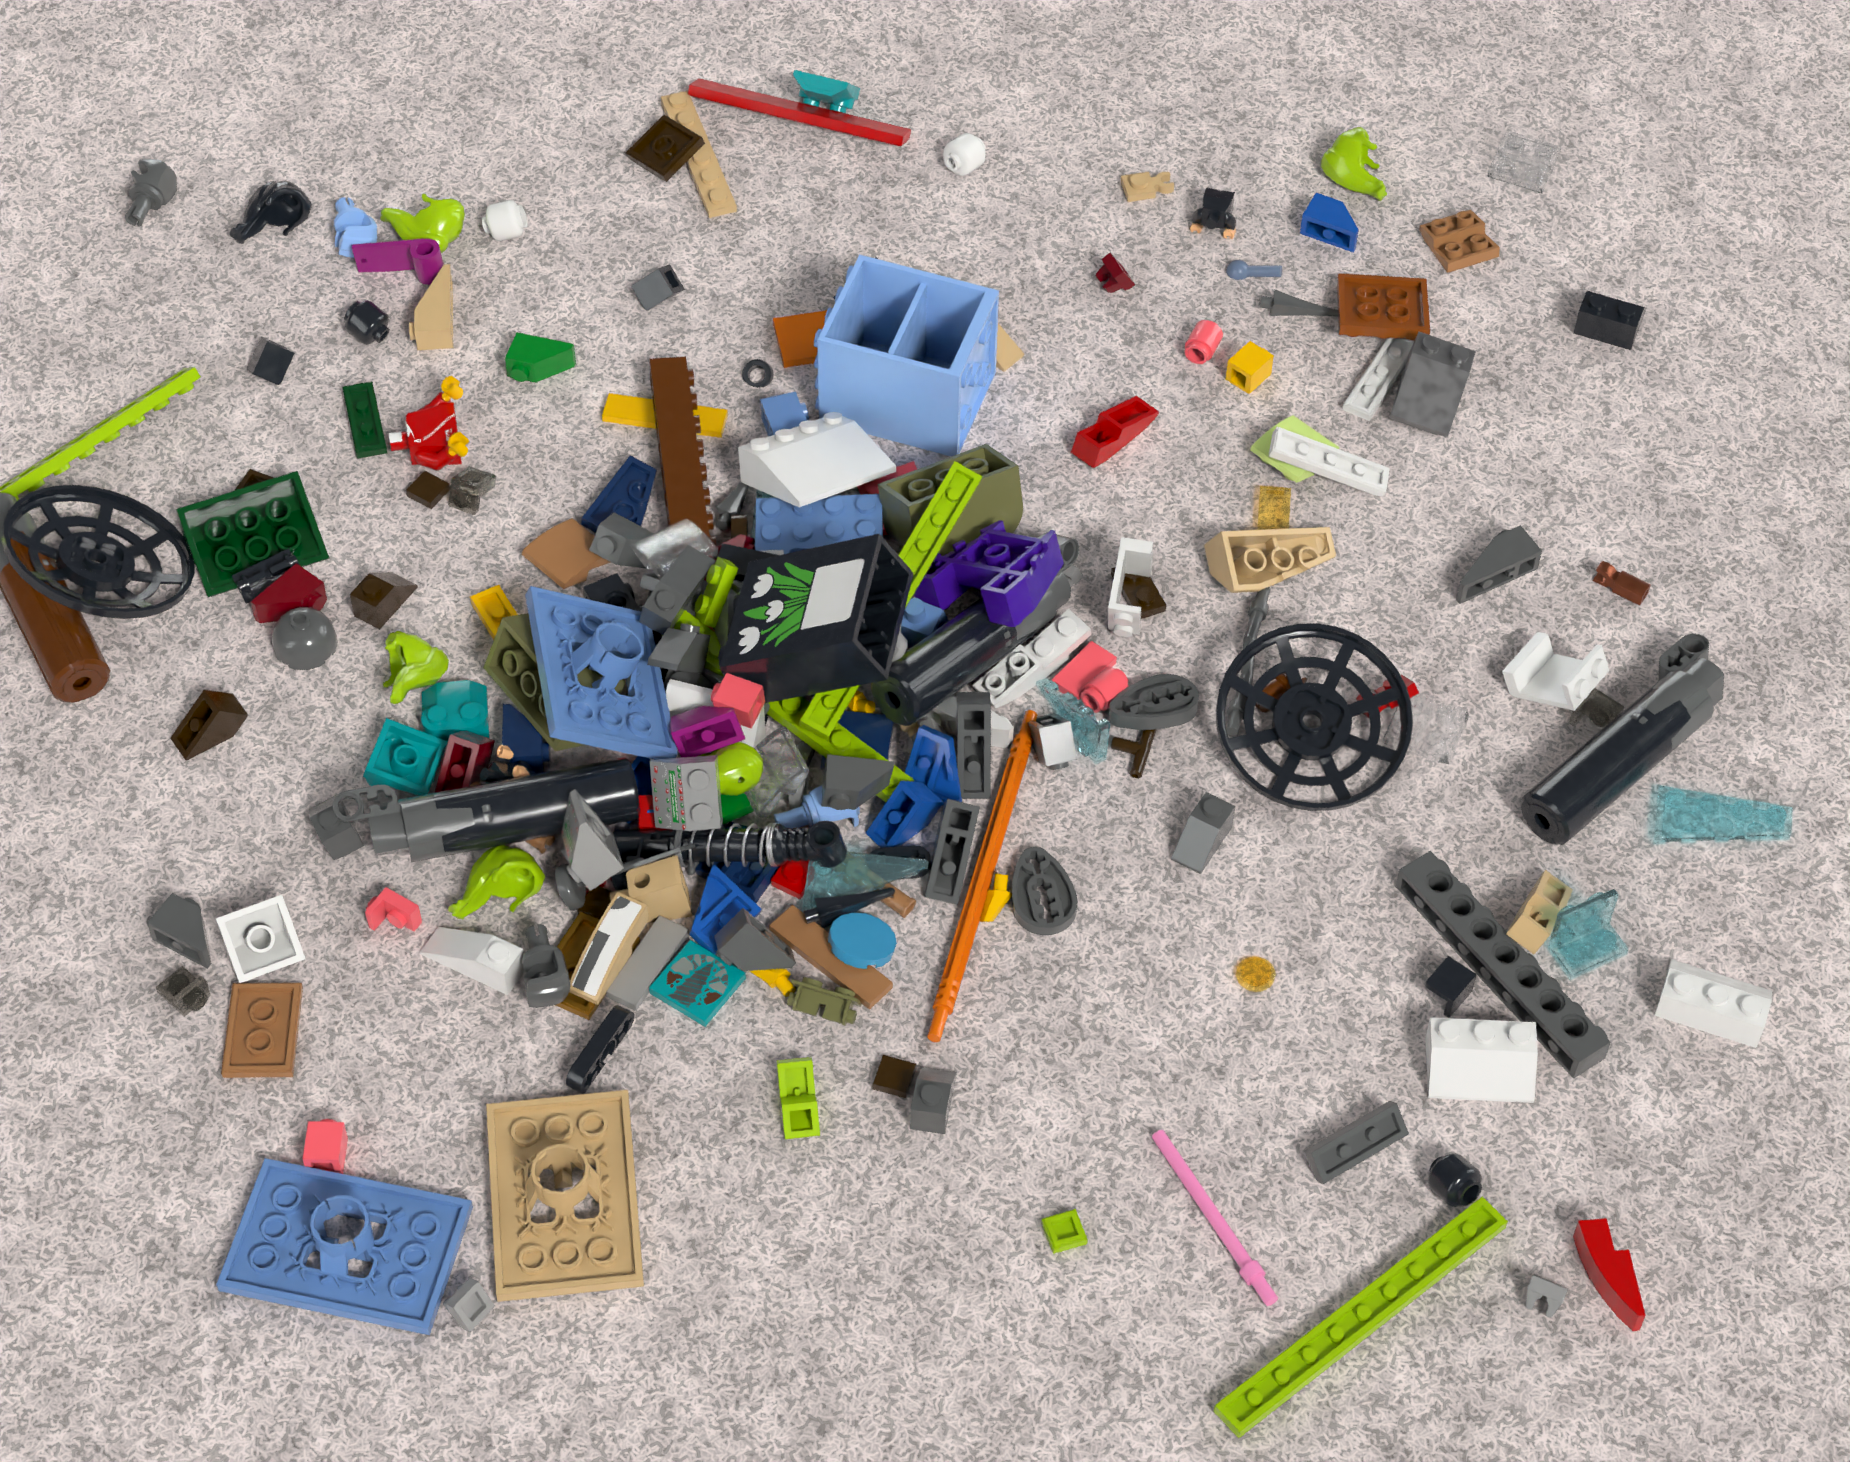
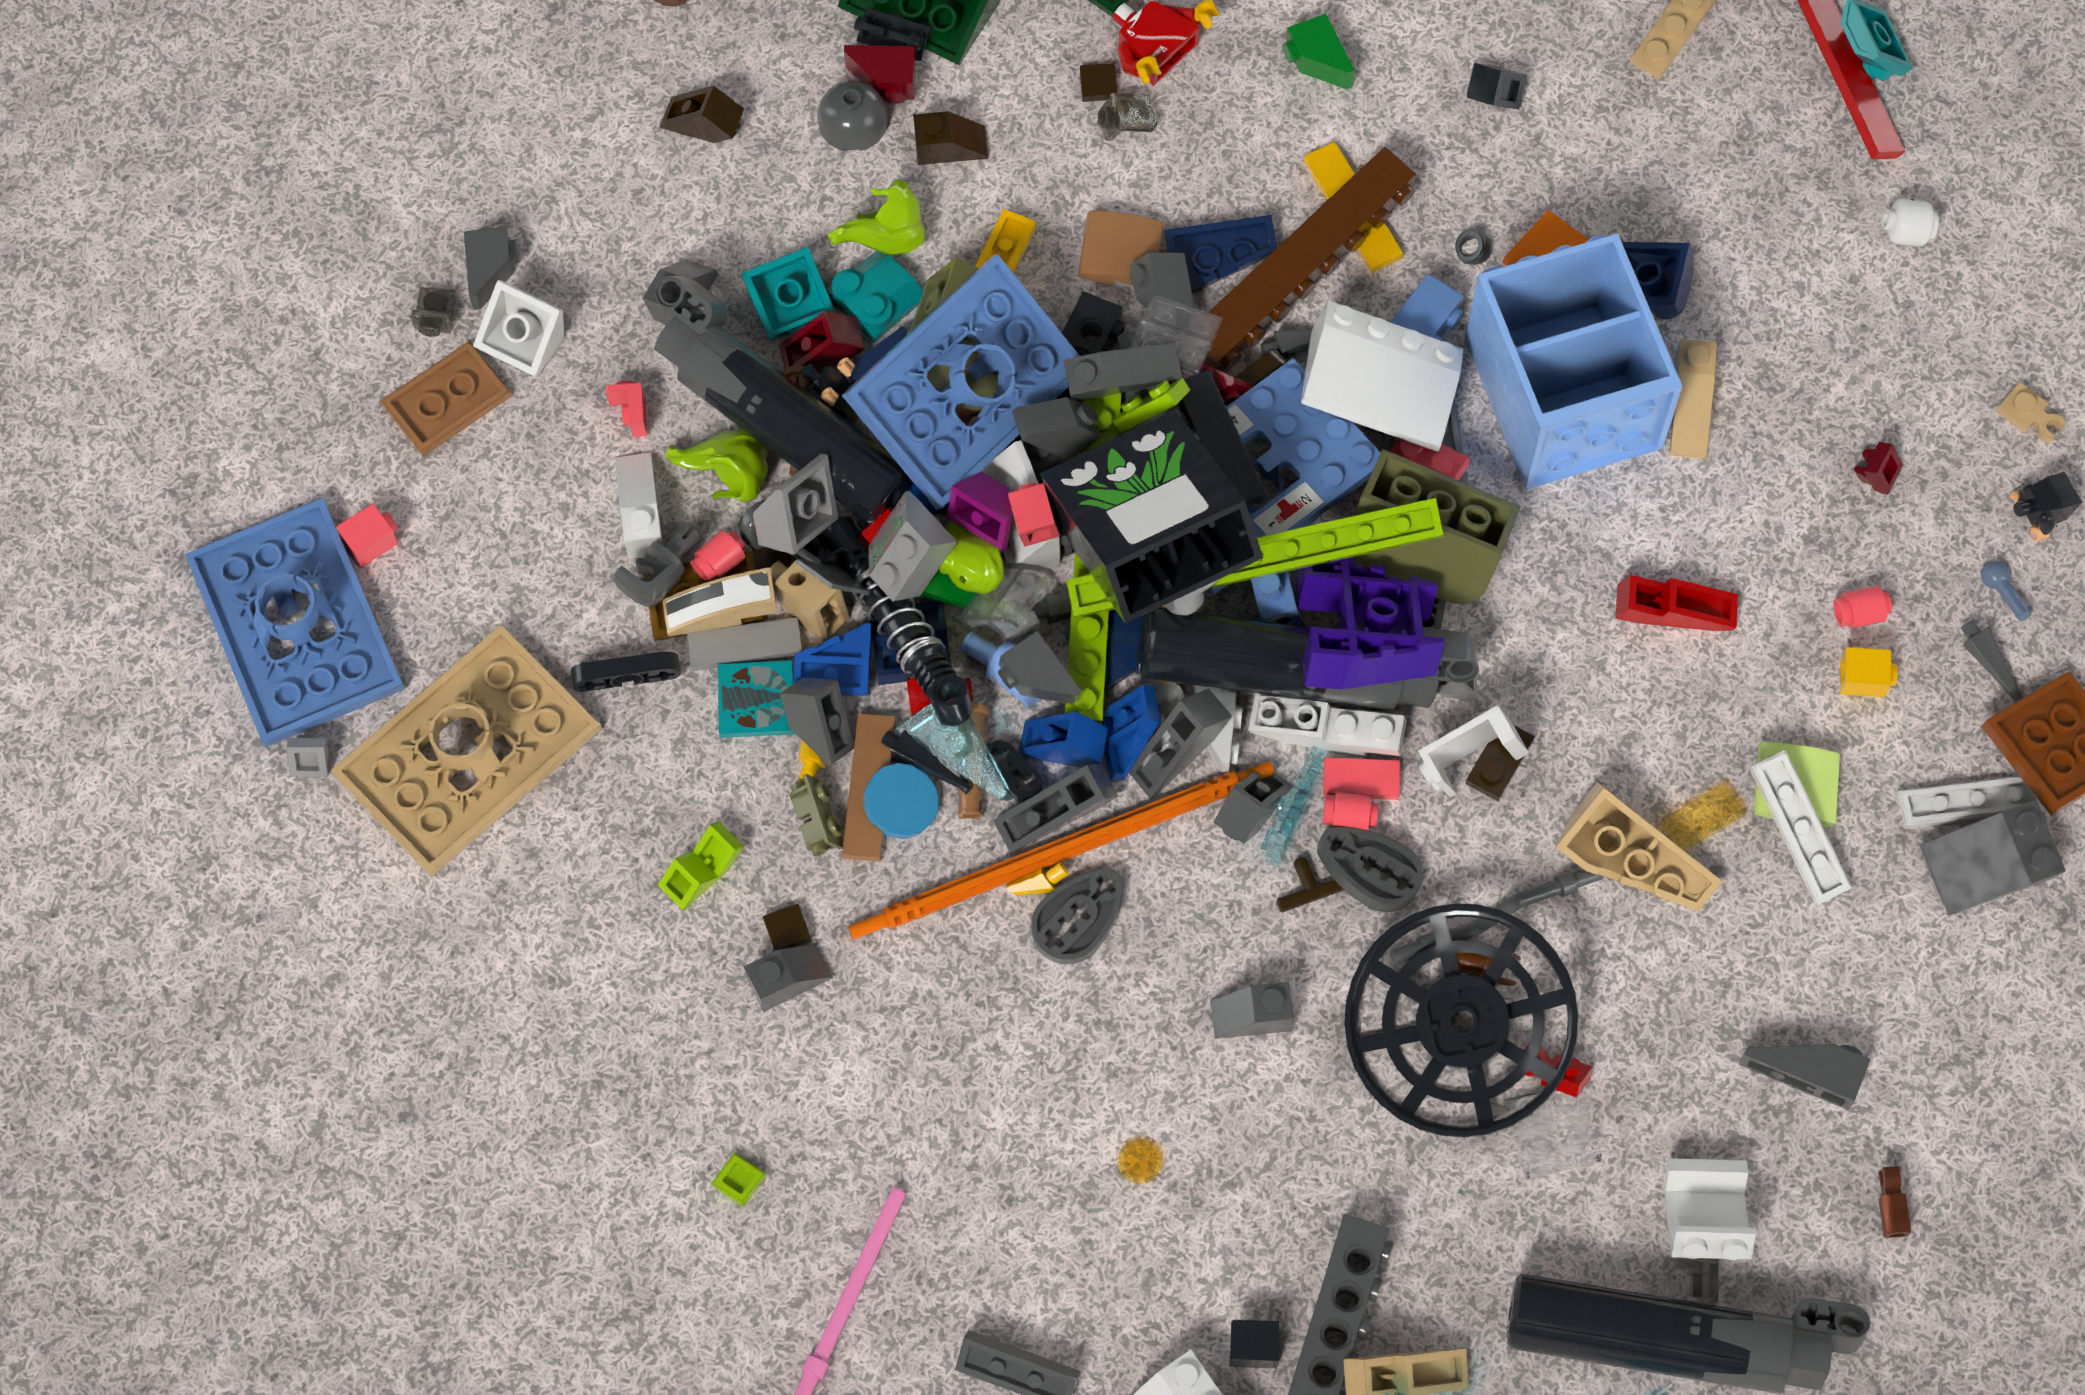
camera: 55 degrees right, 15 degrees up
(570, 927) = (718, 556): none -> coral brick

